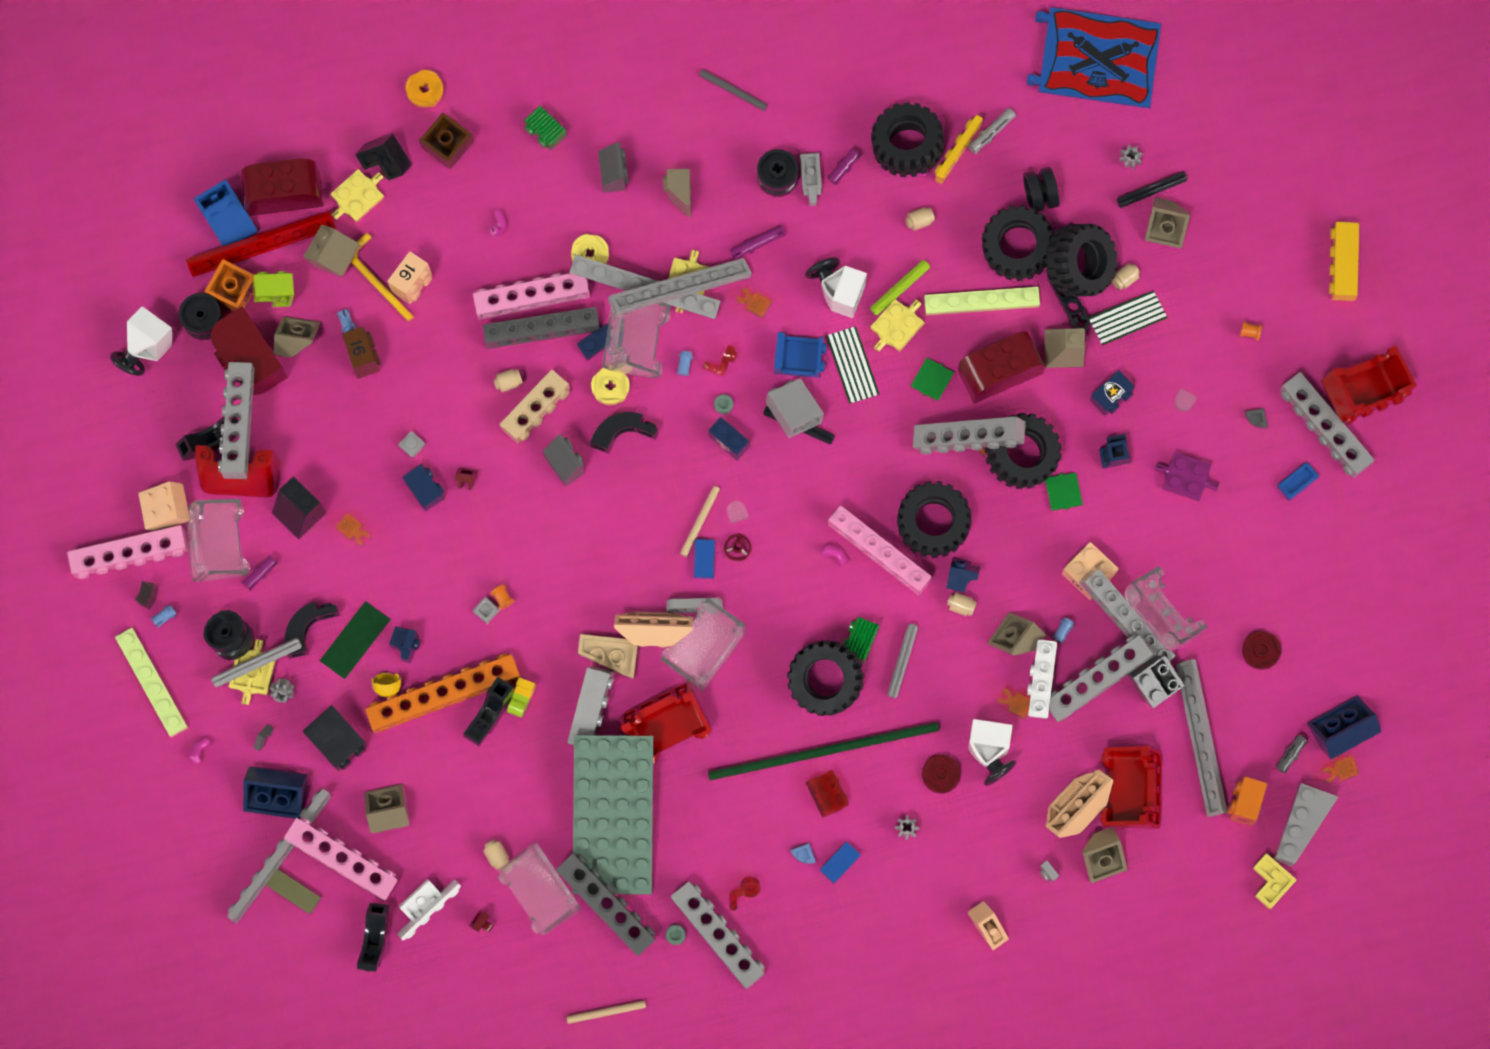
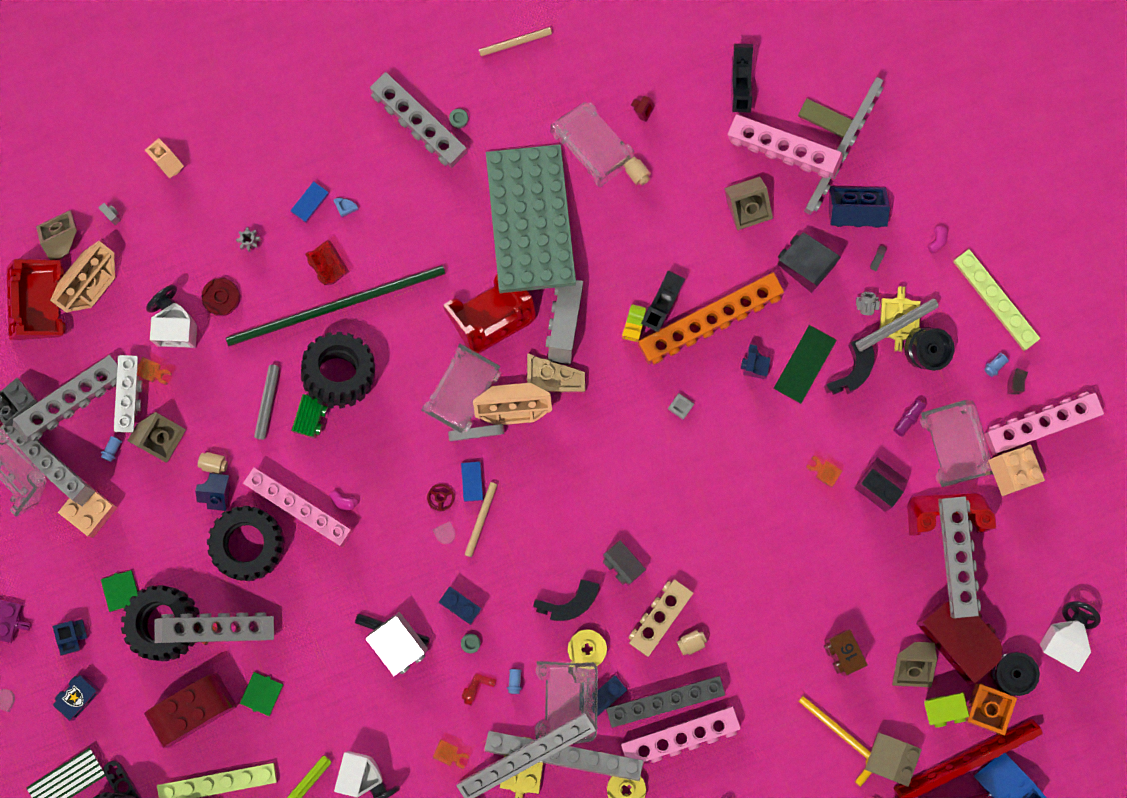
camera: 170 degrees right, 5 degrees up
(209, 437) = (990, 542): black arch -> none
(346, 321) = (865, 686): medium blue pin -> none
(386, 684) = (767, 320): yellow hair -> none
(410, 278) = (807, 738): light nougat brick -> none
(412, 444) = (779, 566): light grey plate -> none
(423, 487) = (760, 522): dark blue brick -> none
(423, 903) = (699, 117): white bracket -> none
(465, 475) = (719, 538): dark red tile -> none
(502, 597) = (666, 420): orange bush -> none
(636, 944) = (523, 125): dark grey brick -> none
(745, 889) = (394, 167): clear red plate -> none
(799, 356) = (397, 702): blue panel -> none
(852, 365) = (344, 701): sticker -> none
(897, 325) = (301, 747): light yellow plate -> none
(1064, 347) = (127, 741): dark tan slope -> none

